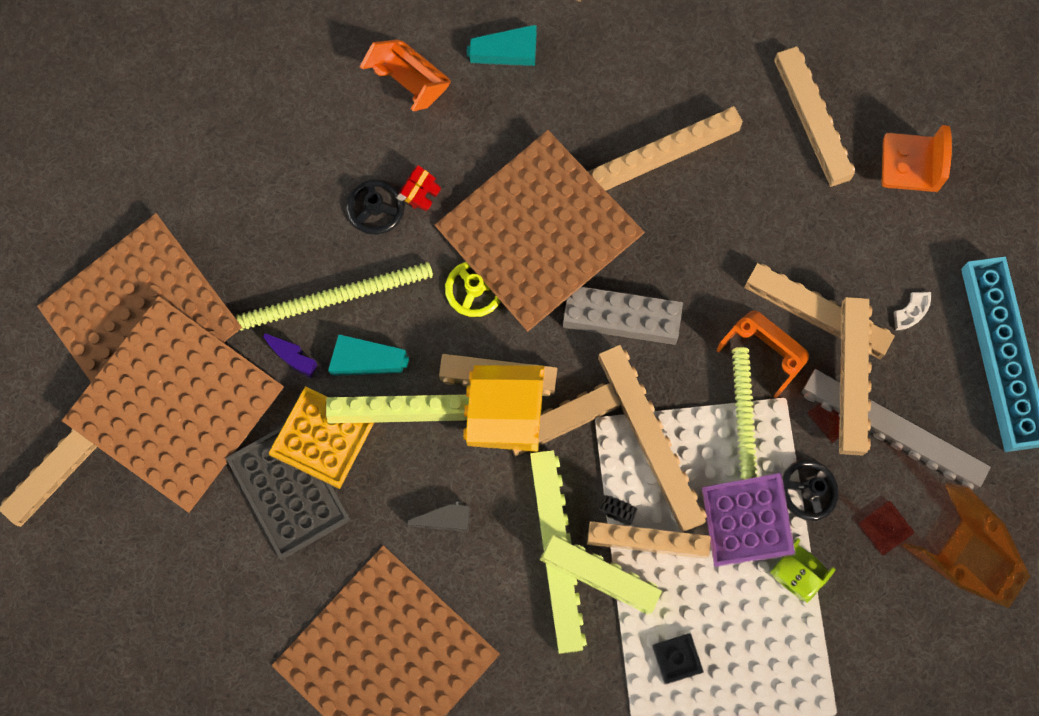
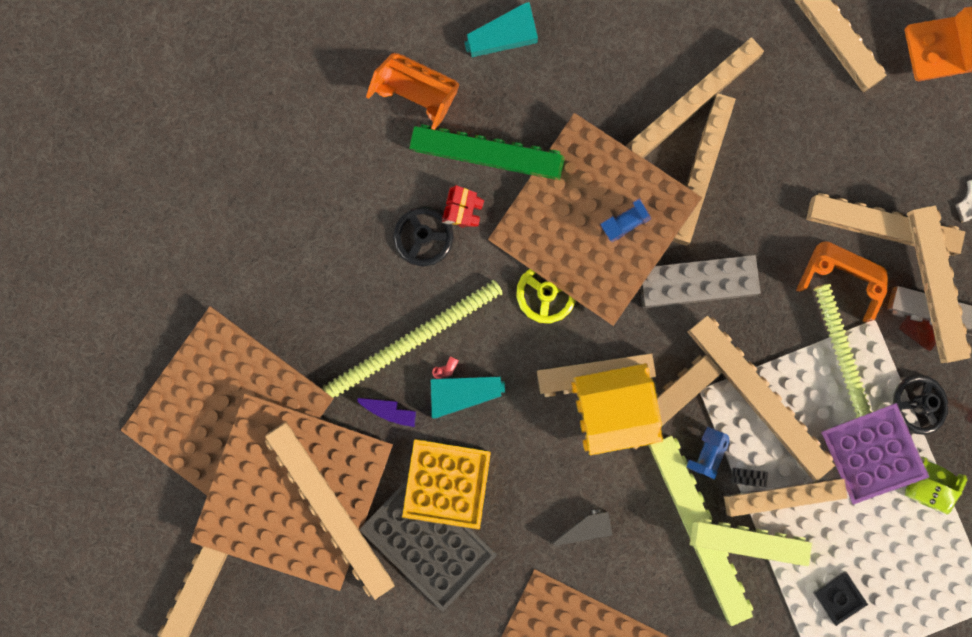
camera: 20 degrees left, 10 degrees up
(202, 428) = (330, 510): none -> tan brick
(357, 333) = (445, 371): none -> coral arm
(396, 408) = (512, 437): yellowish green brick -> none
(456, 144) = (487, 153): none -> green brick
(565, 235) = (627, 221): none -> blue piece
(588, 479) = (711, 454): none -> blue piece
(657, 211) = (706, 159): none -> tan brick

